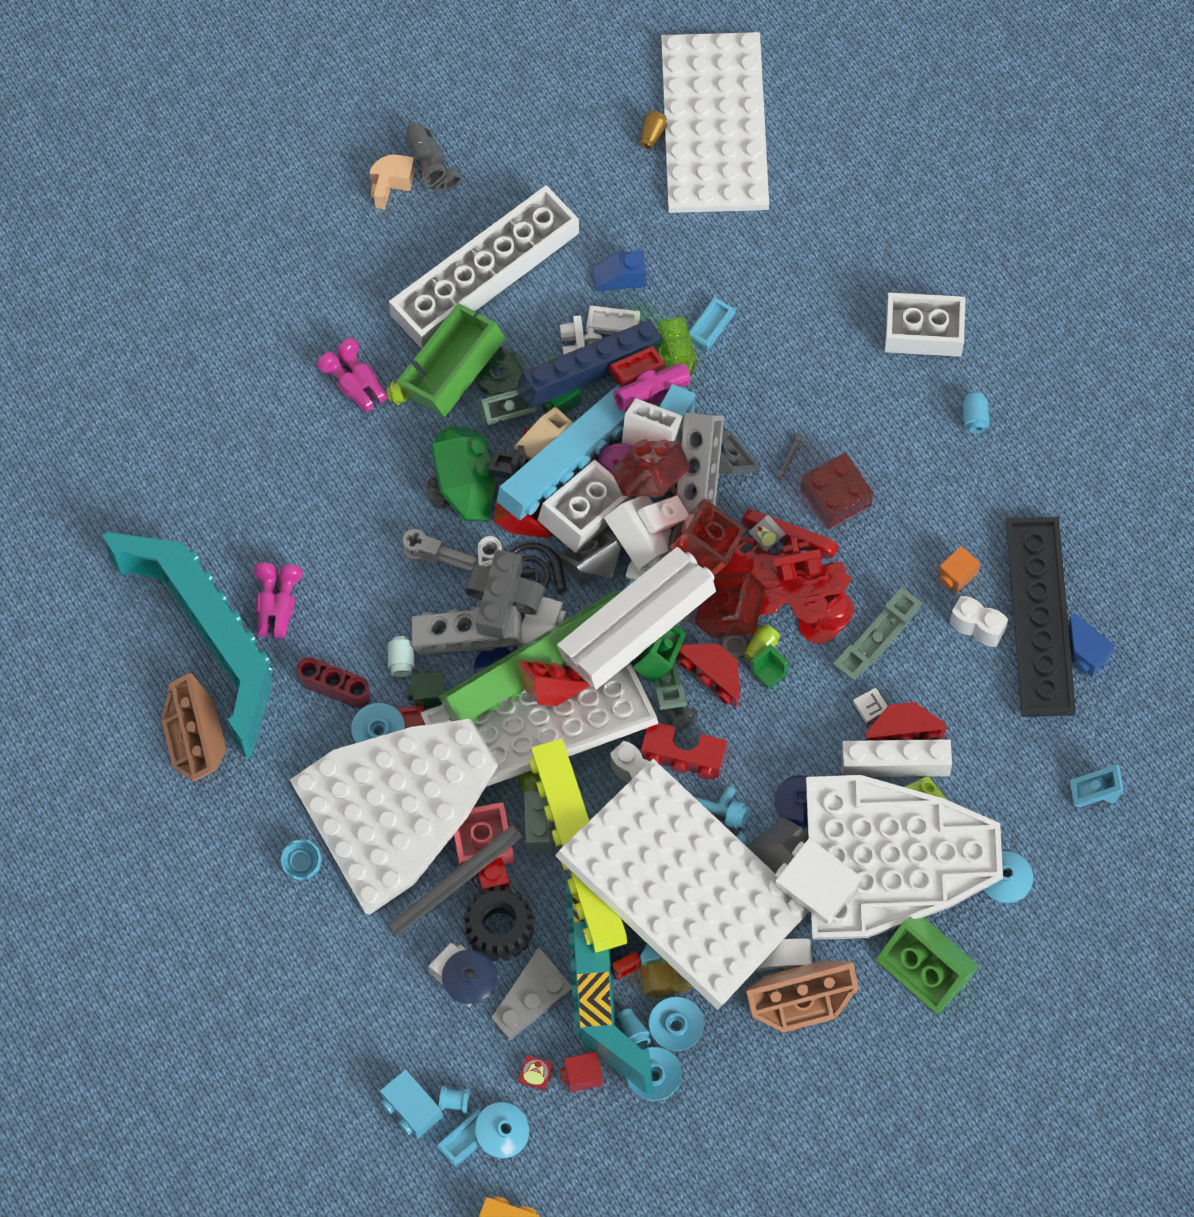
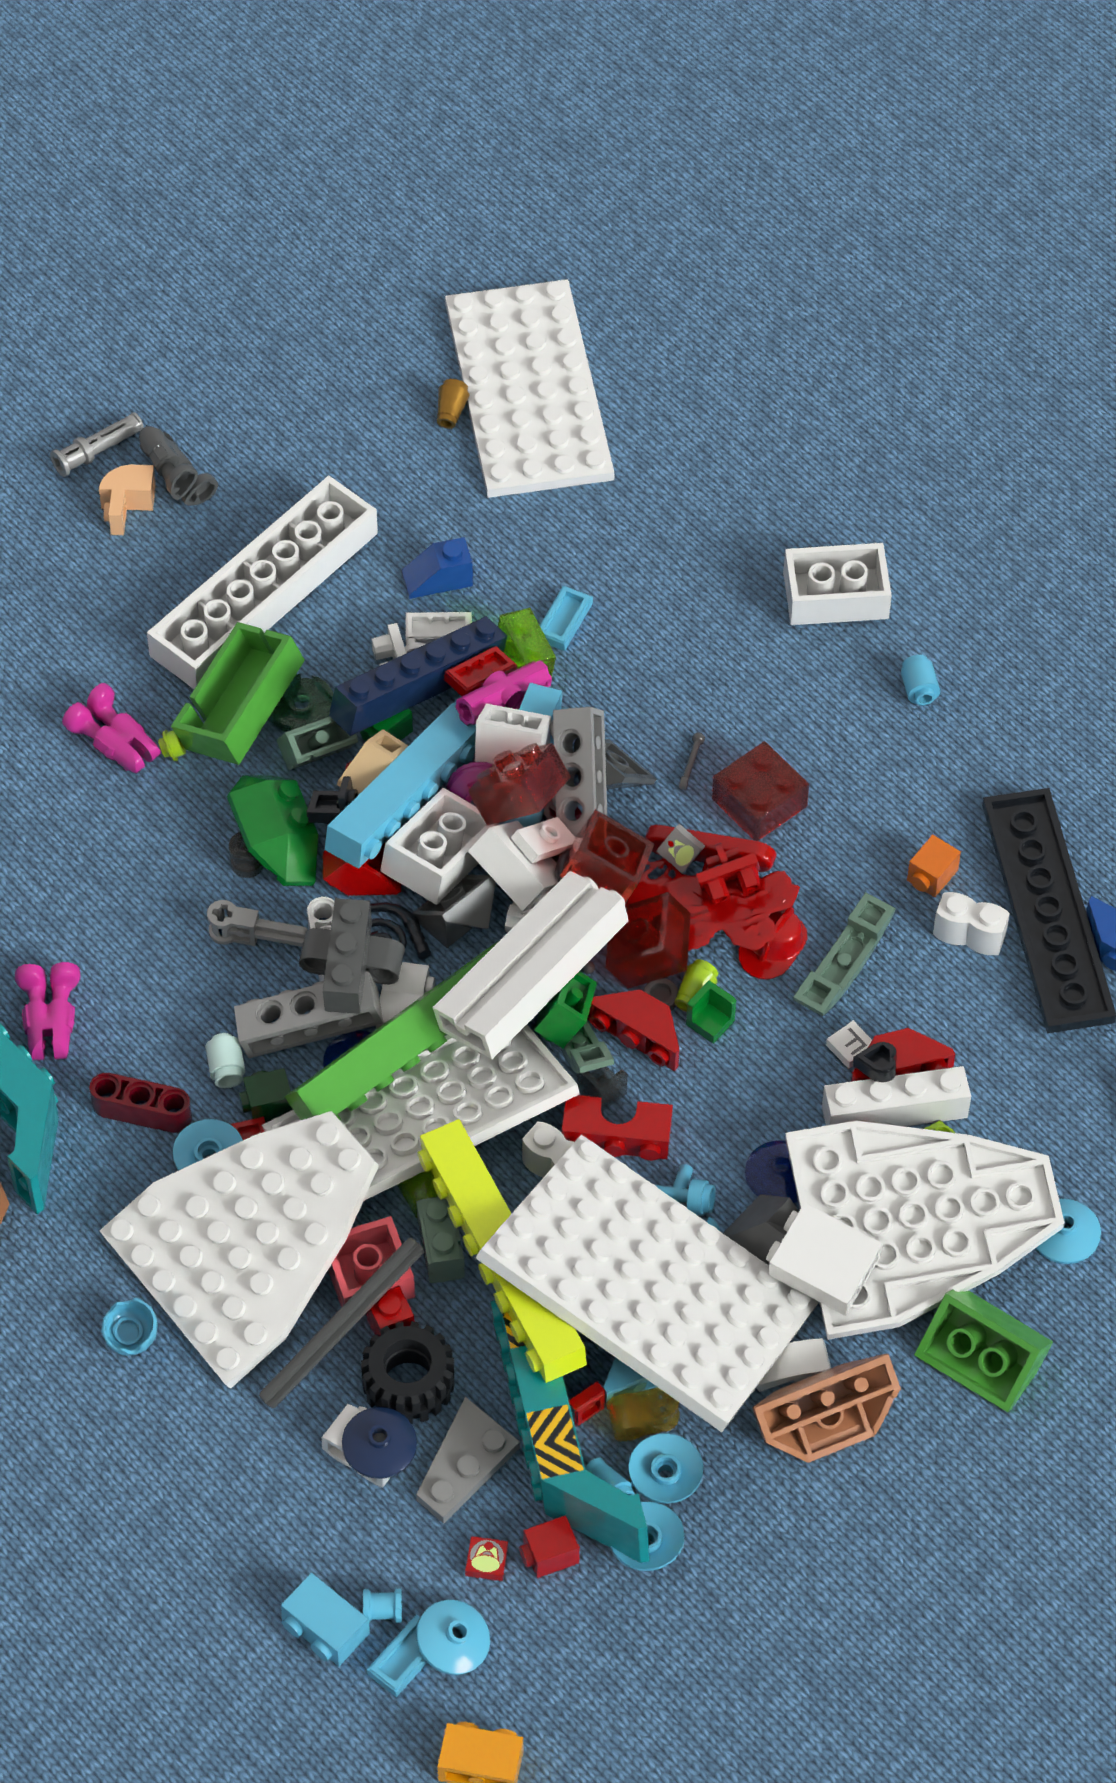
camera: 10 degrees left, 10 degrees down
(364, 134) = (84, 449): none -> light grey pin
(550, 682) = (431, 1059): red slope -> none
(886, 728) = (877, 1062): none -> black tile

